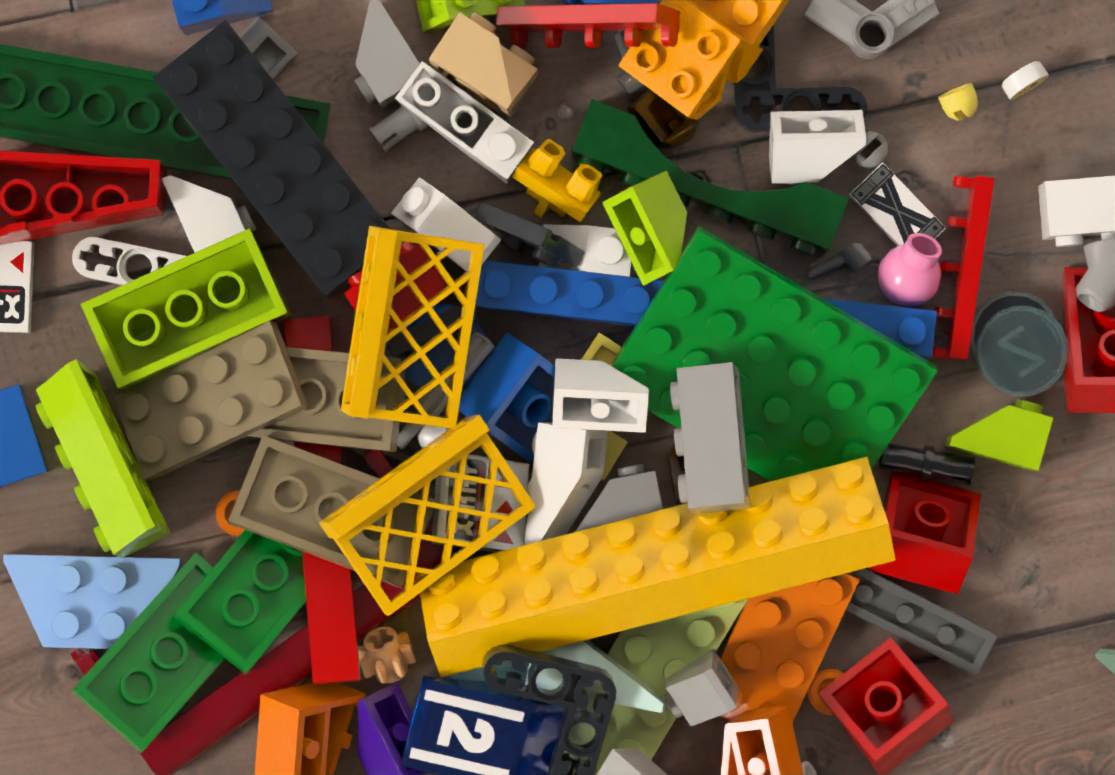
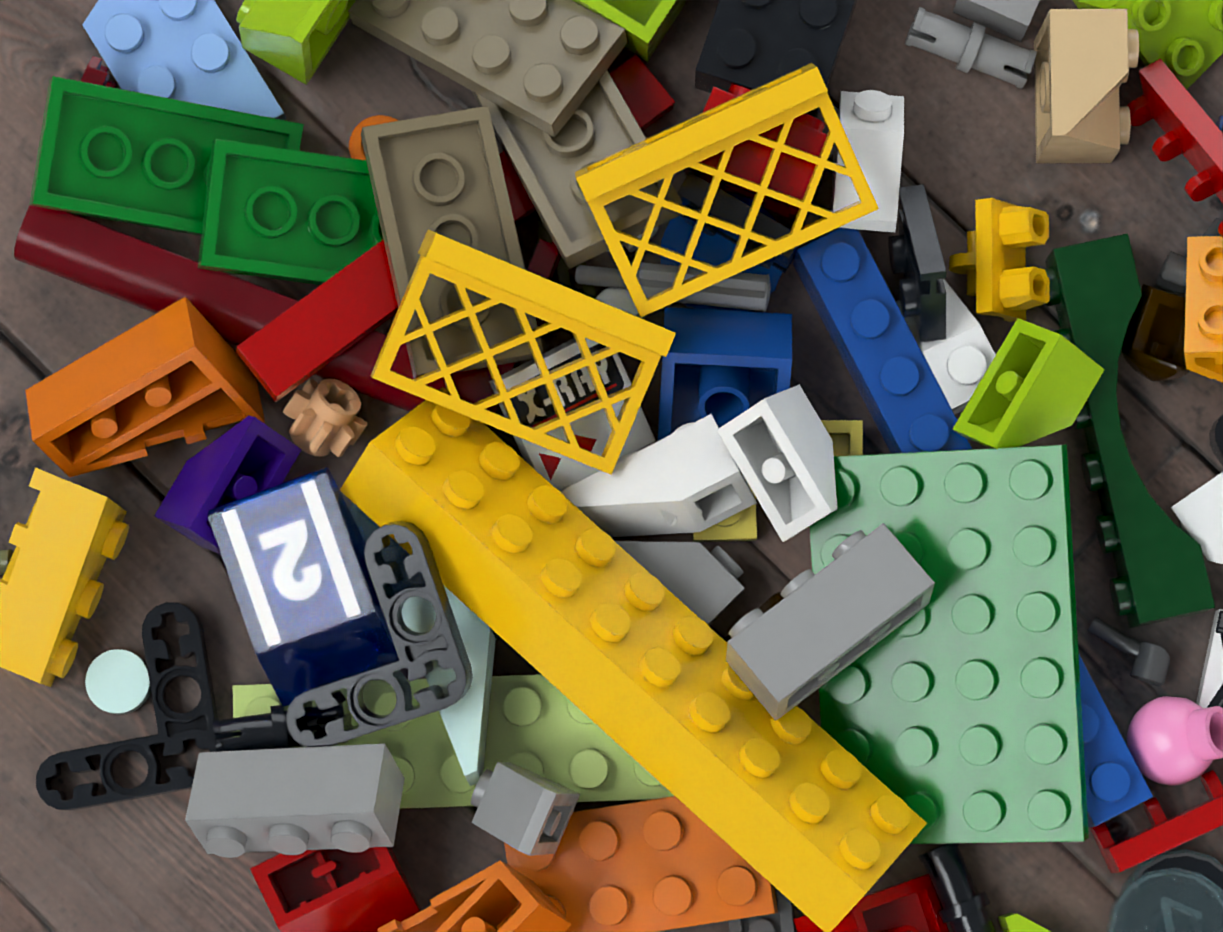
camera: 55 degrees right, 5 degrees down
(465, 122) = (1002, 107): white slope -> none

